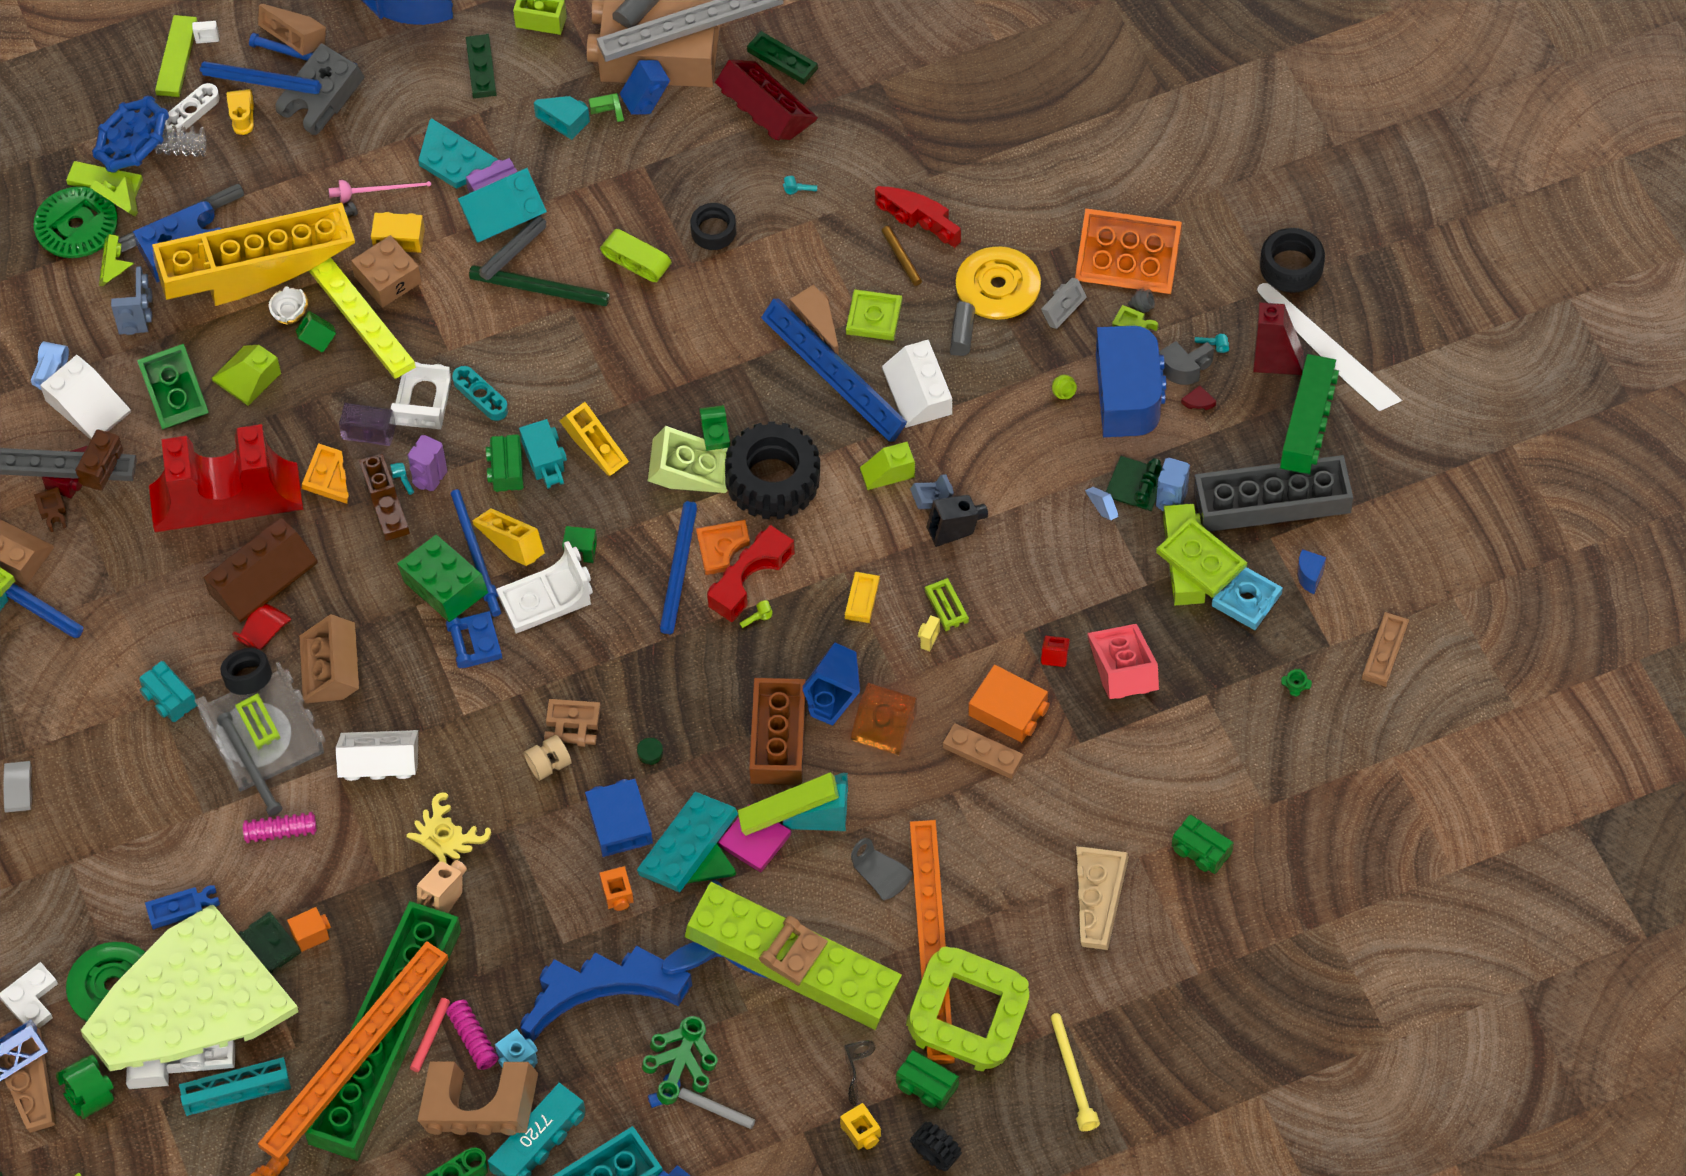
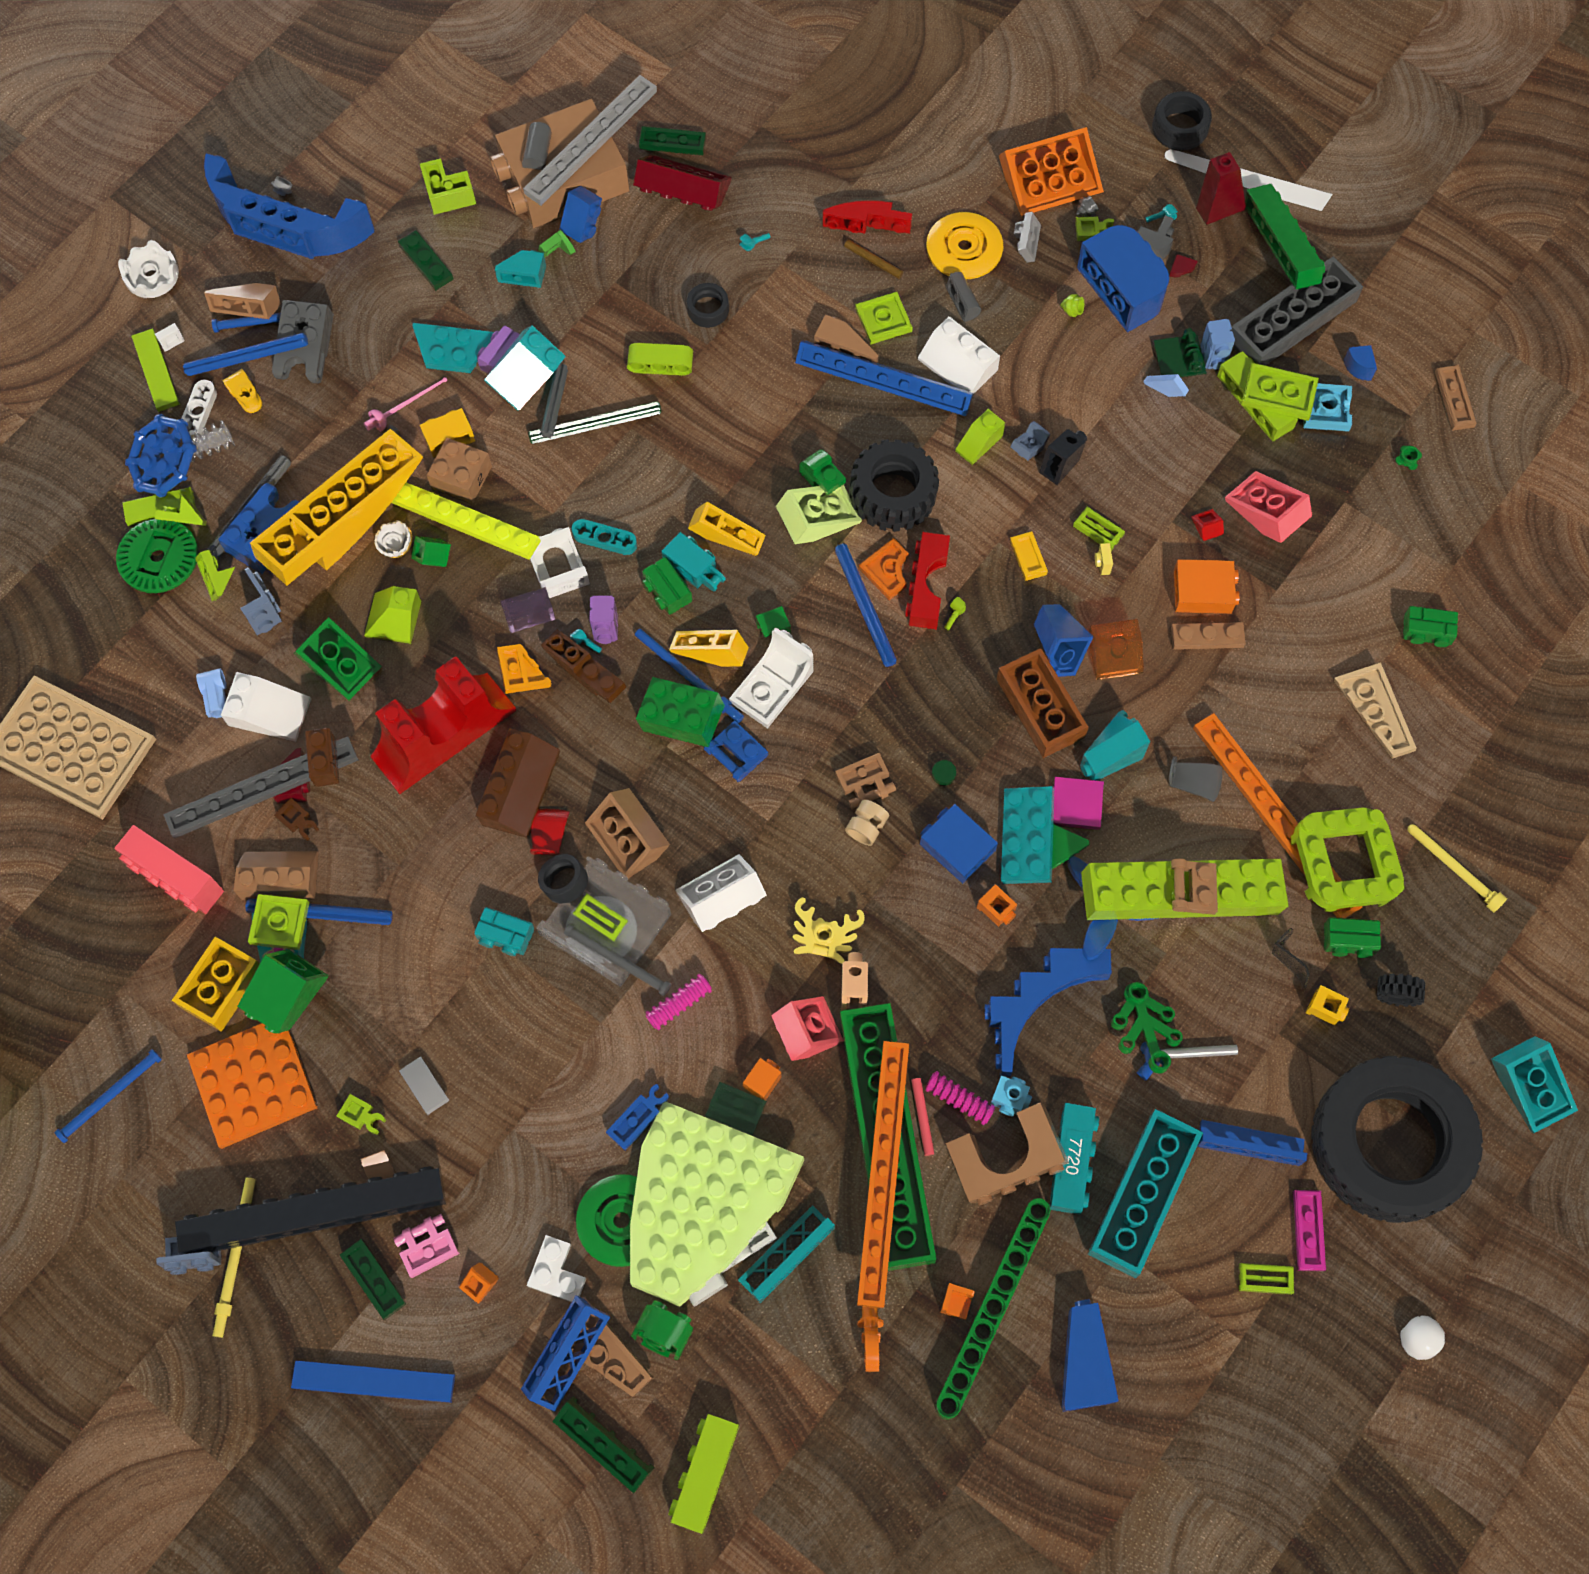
camera: 30 degrees left, 10 degrees up
(375, 904) = (807, 1027): none -> coral slope
(788, 804) = (1097, 761): lime tile -> none

